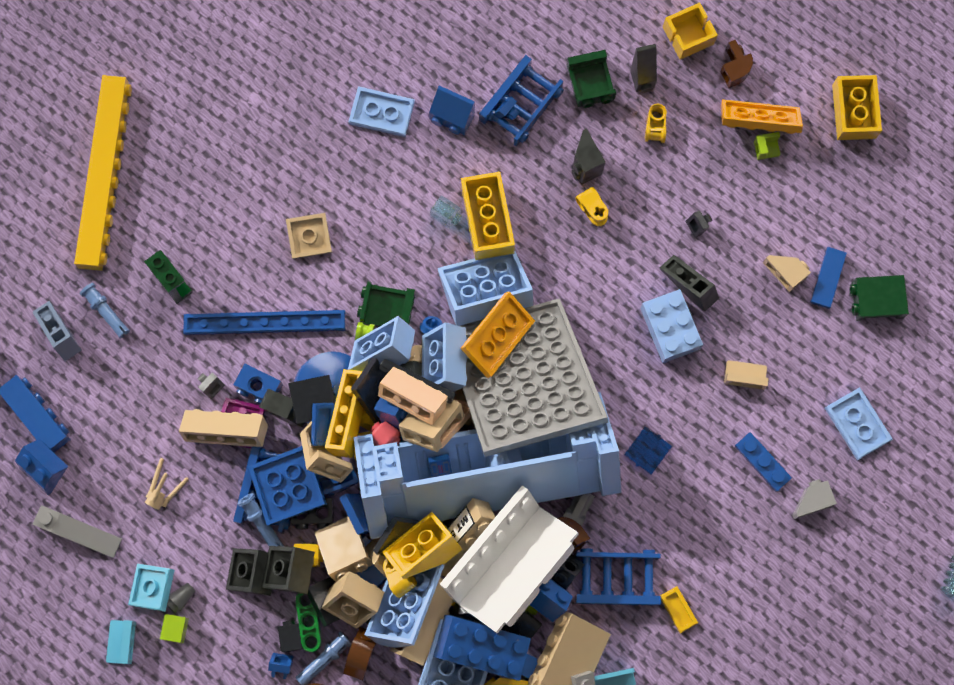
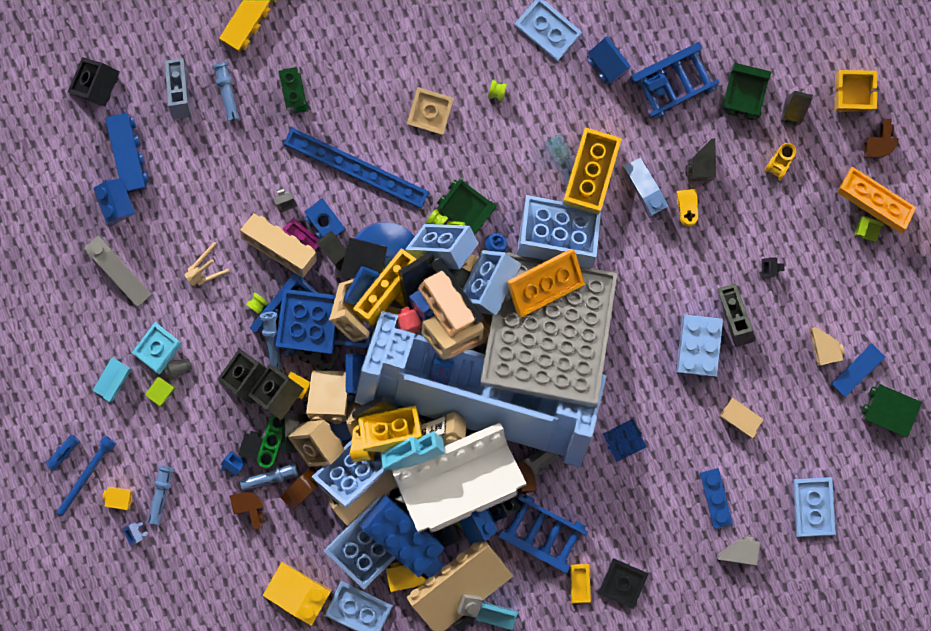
camera: 25 degrees right, 10 degrees up
(230, 495) = (257, 303): none -> lime wheel
(362, 187) = (497, 91): none -> lime wheel
(452, 555) = (413, 451): none -> medium azure slope
(546, 208) = (646, 187): none -> slope
(719, 588) = (623, 583): none -> black tile

